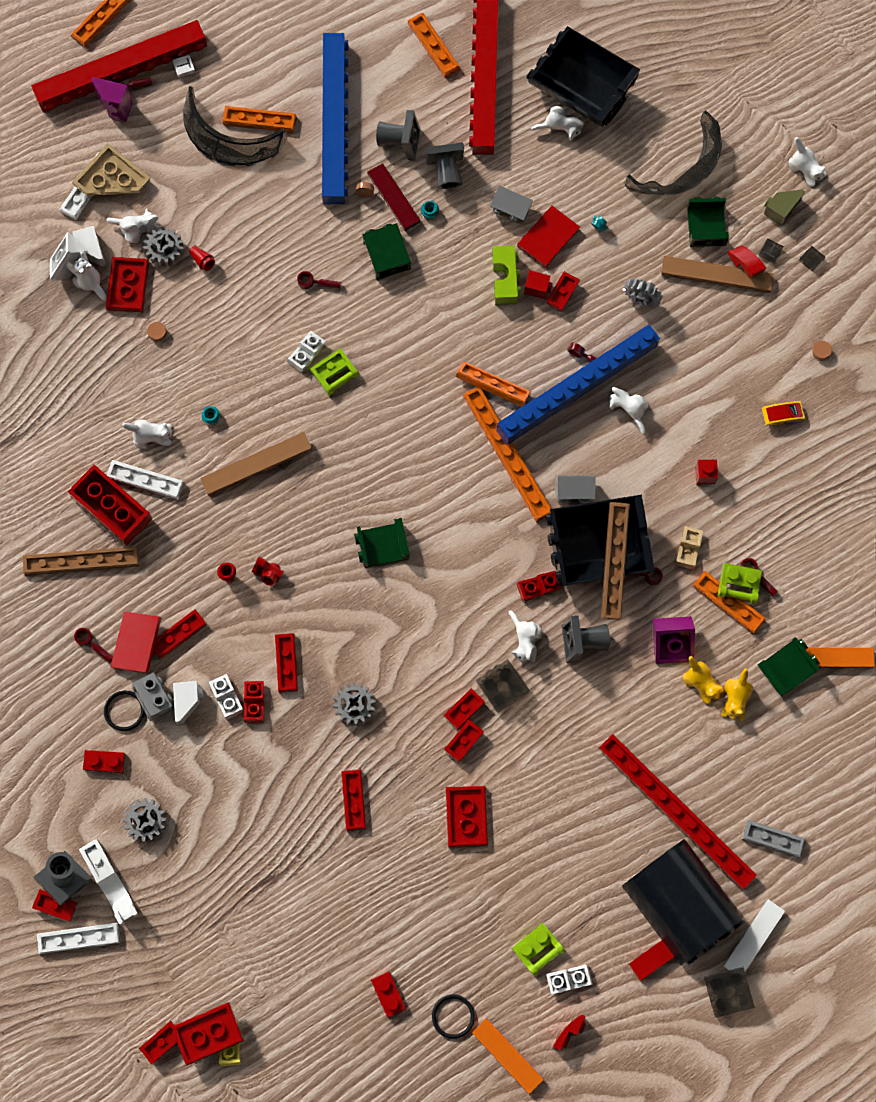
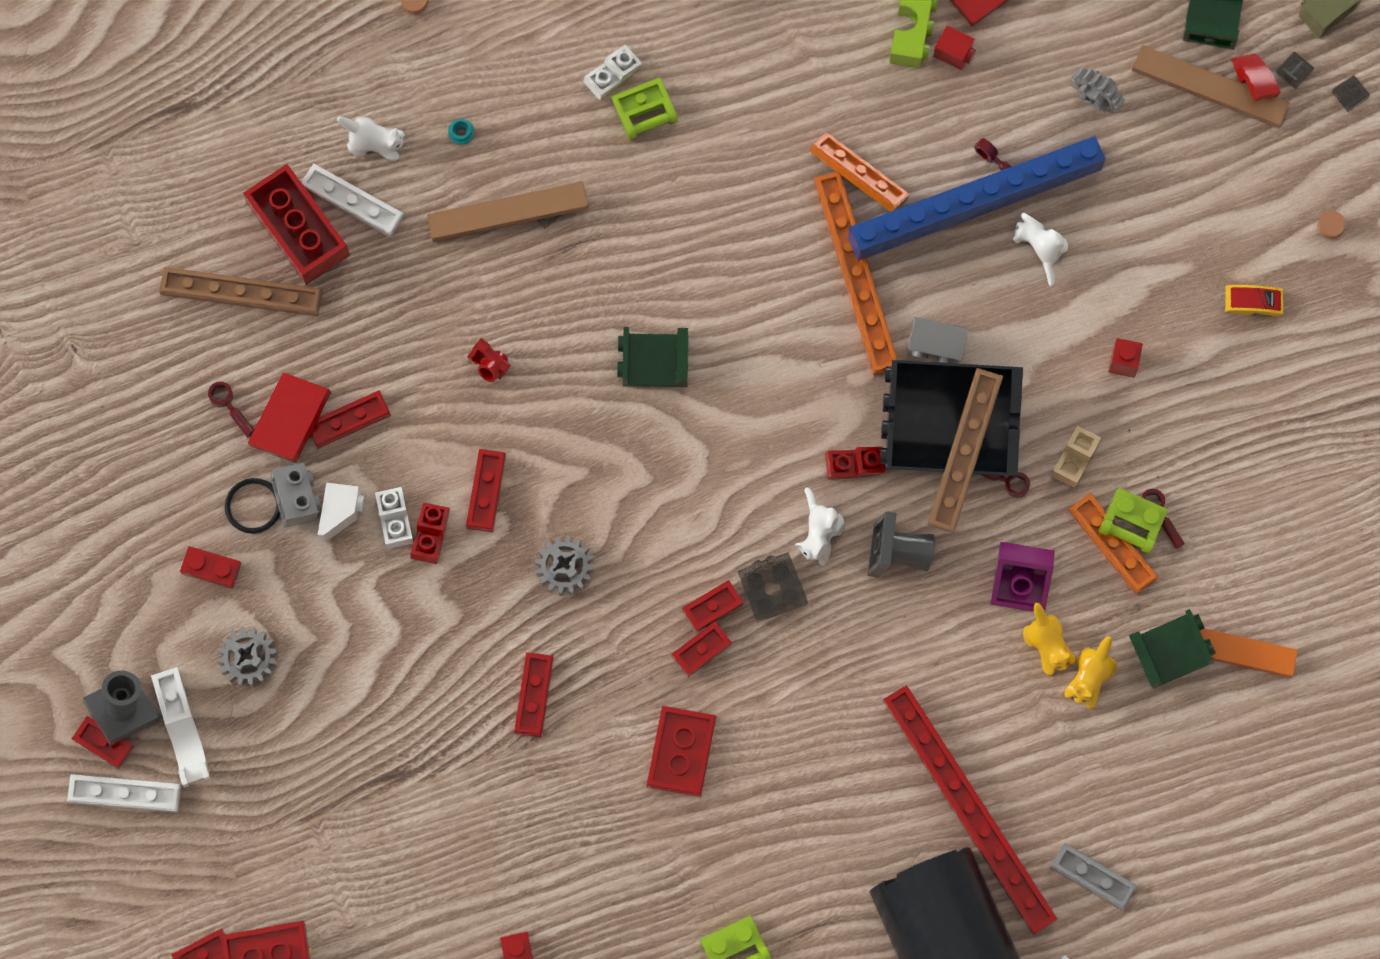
camera: 15 degrees right, 0 degrees up
(224, 569) = (432, 345): red cone -> none
(562, 291) = (987, 64): red plate -> none

